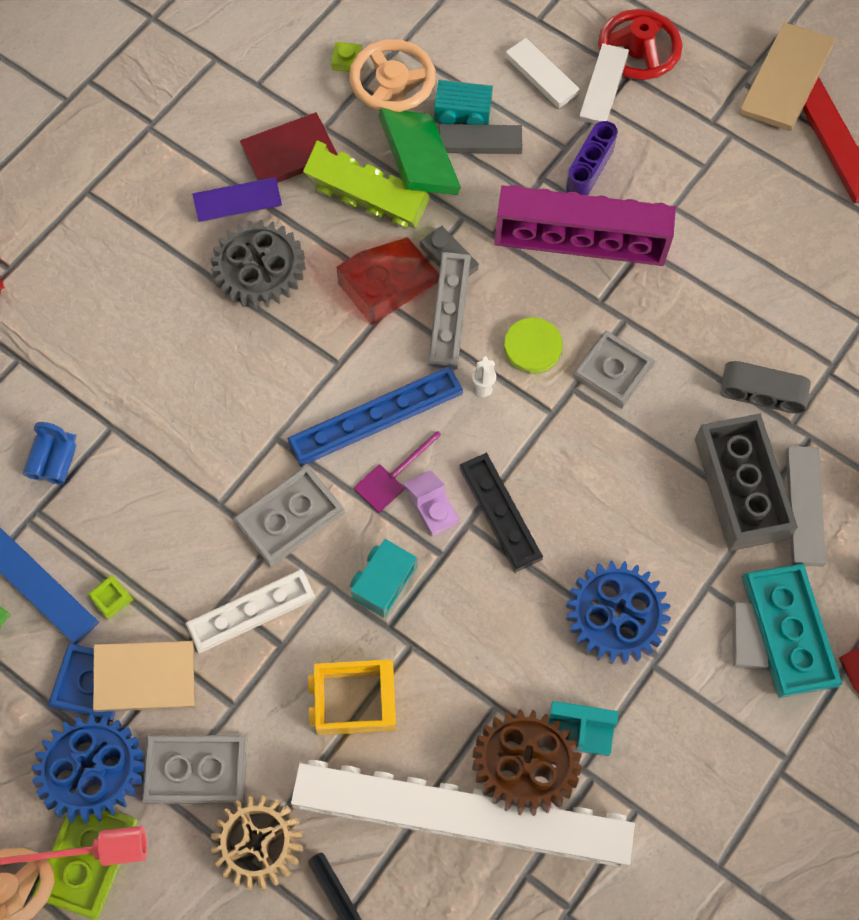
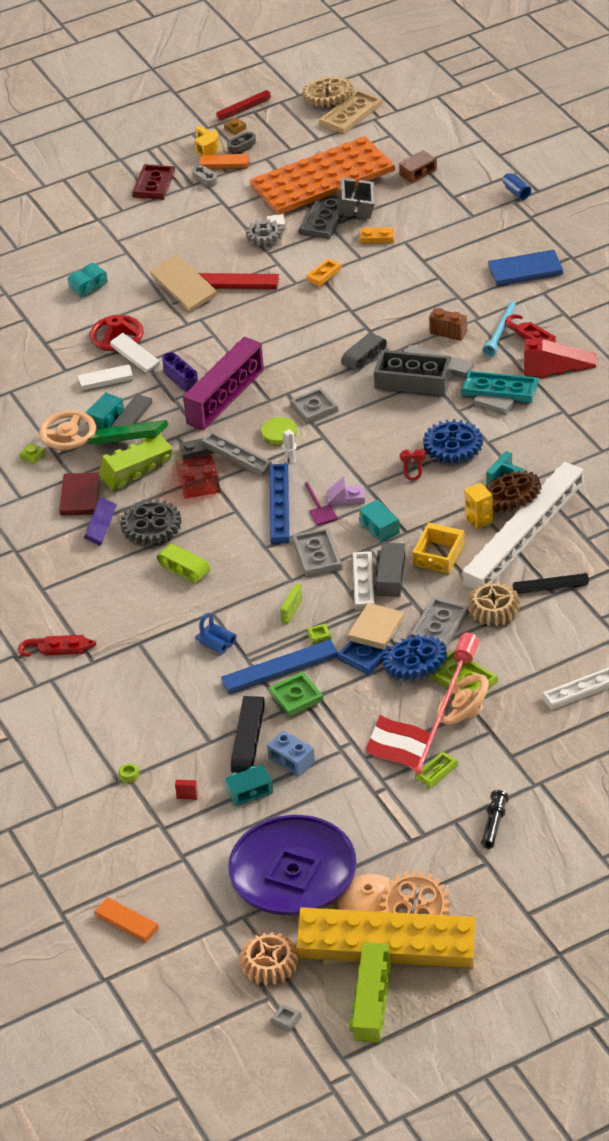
camera: 60 degrees left, 25 degrees down
(152, 529) = (291, 603): none -> lime tile
(189, 343) = (183, 563): none -> lime beam
(279, 643) = (390, 569): none -> dark grey brick
(462, 723) = (478, 506): none -> yellow brick
(501, 512) = (368, 471): black tile -> none
(547, 567) = (418, 456): none -> red piece

